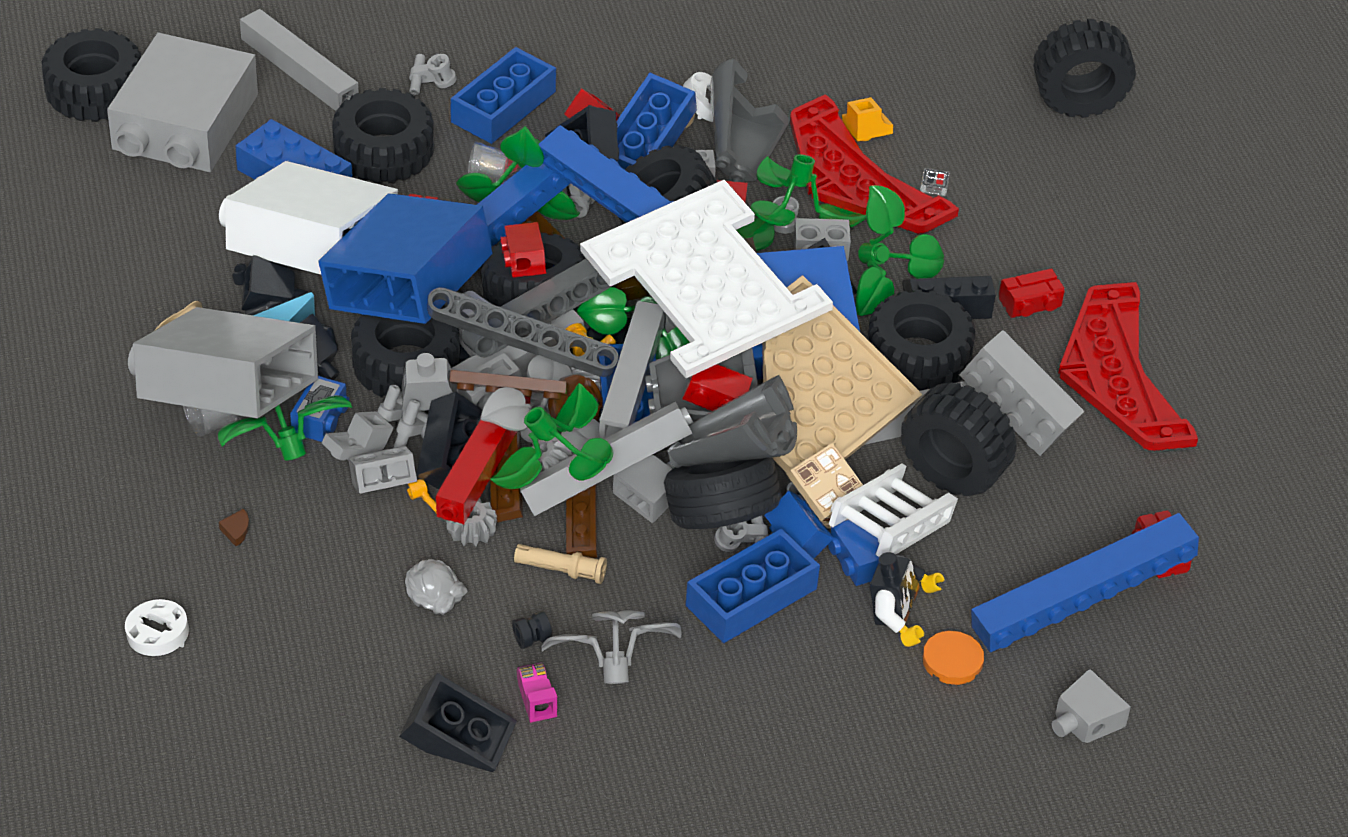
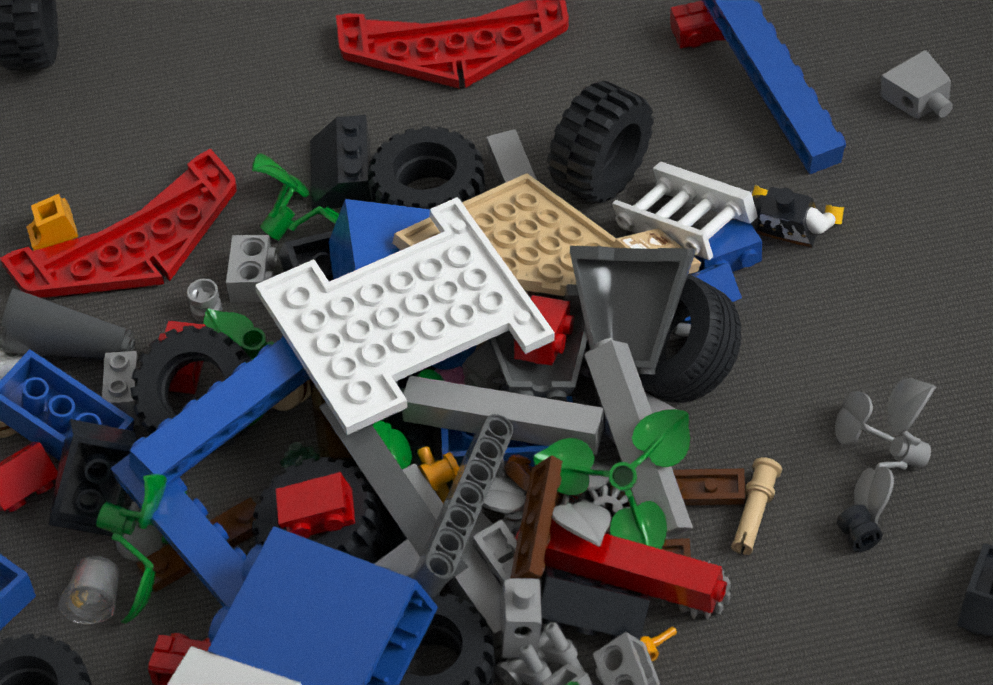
camera: 80 degrees left, 5 degrees up
(434, 586) = (813, 622): light grey hair -> none
(535, 691) = (945, 523): dark pink leg -> none
(752, 585) = (792, 332): blue brick -> none
(799, 175) = (207, 256): green plant -> none
(935, 181) = (153, 172): clear tile -> none
(953, 657) = (856, 185): orange tile -> none
(1023, 390) = (526, 93): light grey brick -> none
(1031, 293) = (346, 93): red brick -> none

